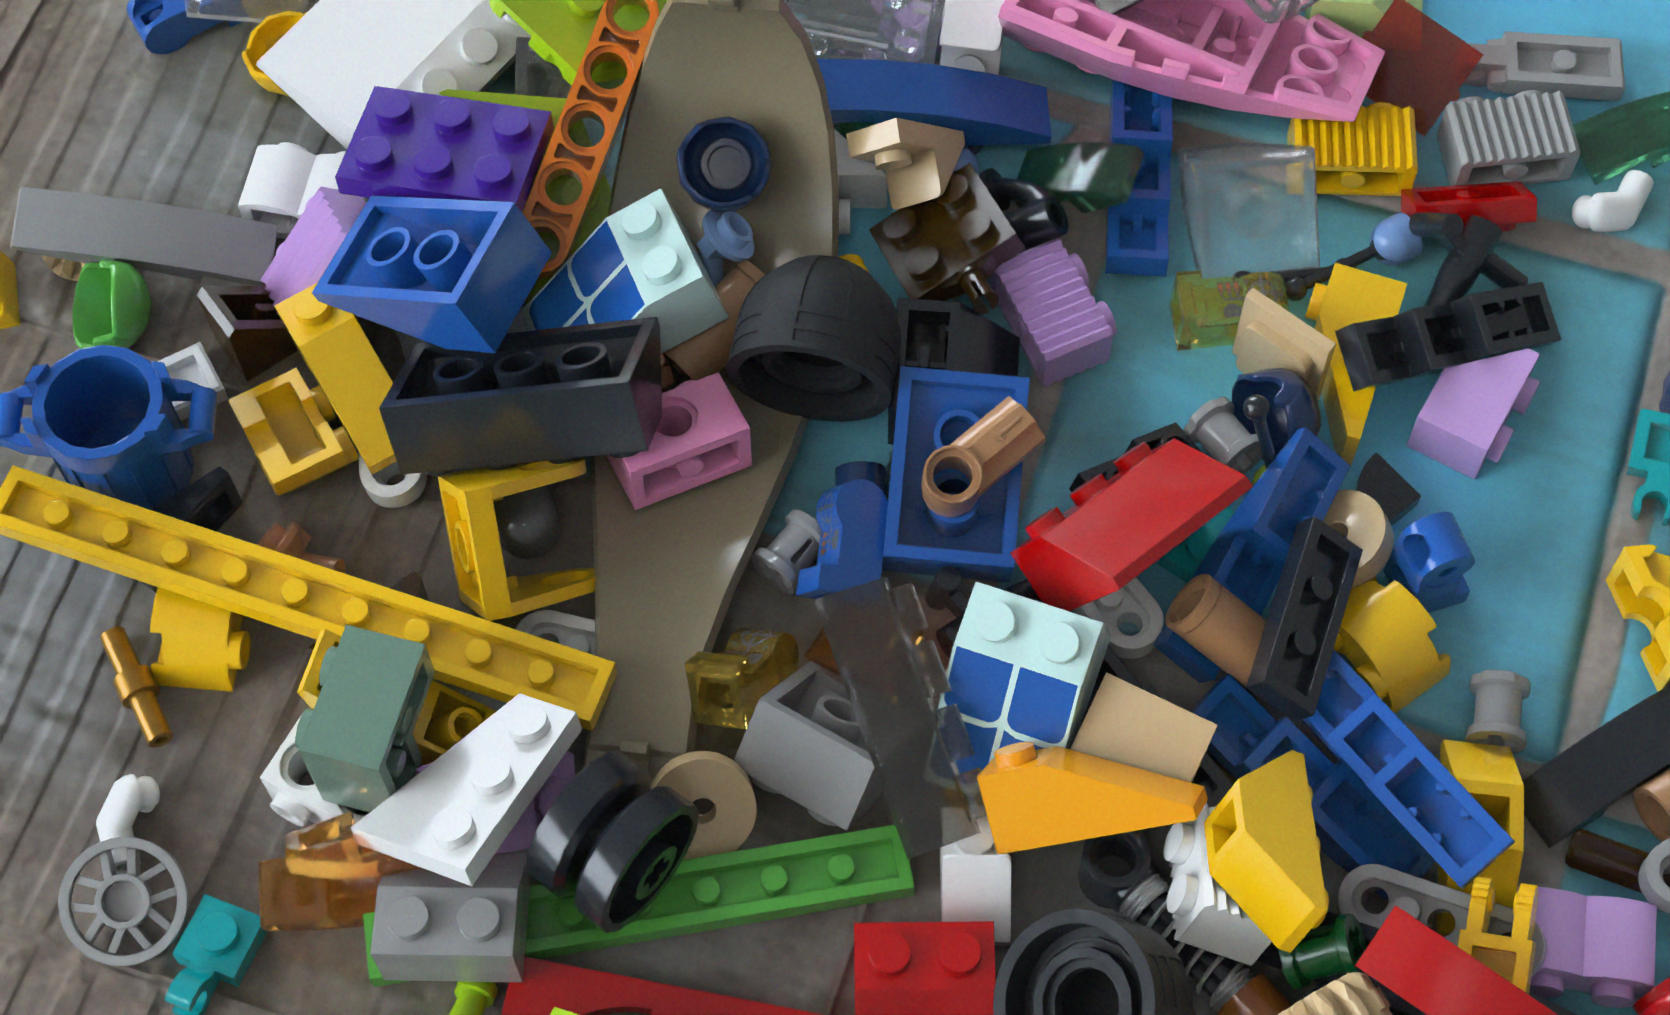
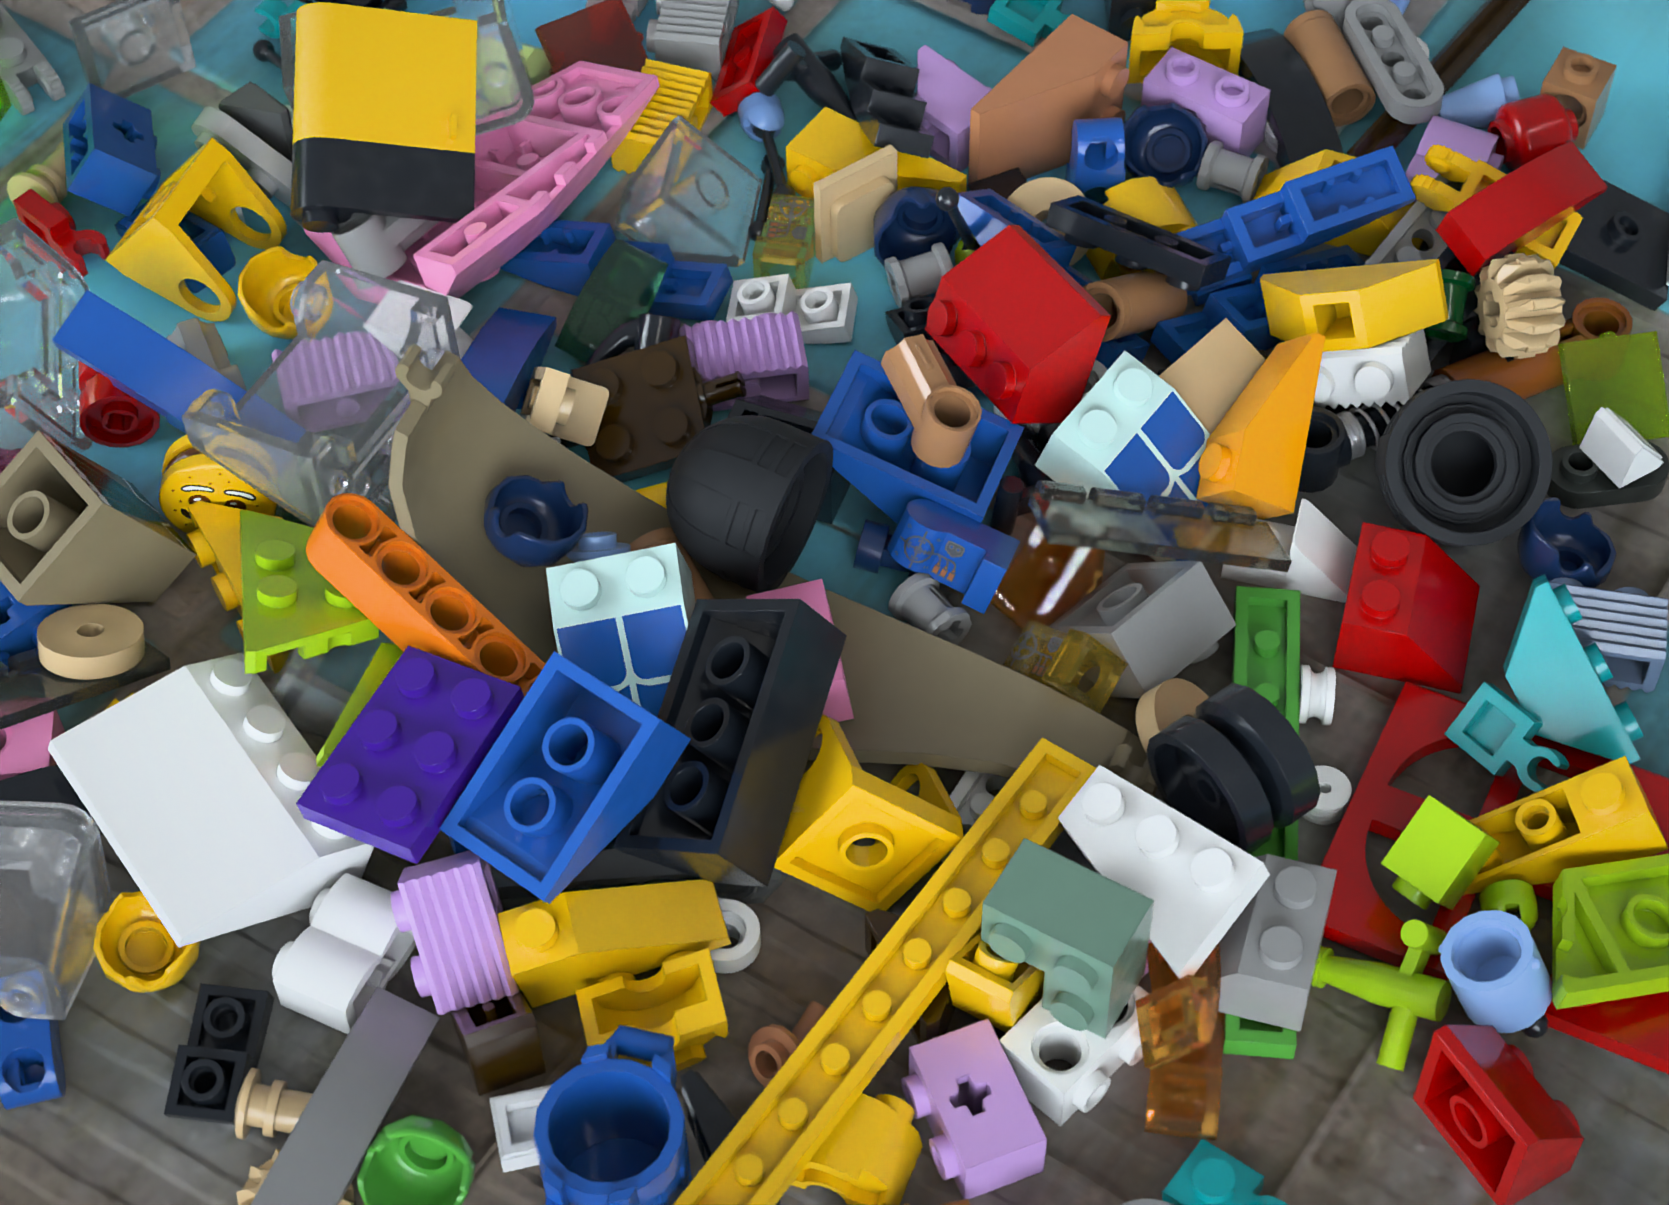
camera: 75 degrees left, 10 degrees down
(158, 179) = (267, 1106): none -> tan pin
(193, 145) = (220, 1052): none -> black slope
(215, 719) = (975, 1110): none -> lavender brick
(682, 947) = (1334, 796): none -> white piece
(792, 928) = (1317, 694): none -> white bush
(1147, 339) = (823, 311): none -> white slope
(1495, 624) = (1164, 144): none -> dark blue hair
(1507, 496) = (1033, 108): none -> nougat slope
(1577, 660) = (1225, 103): none -> lavender brick

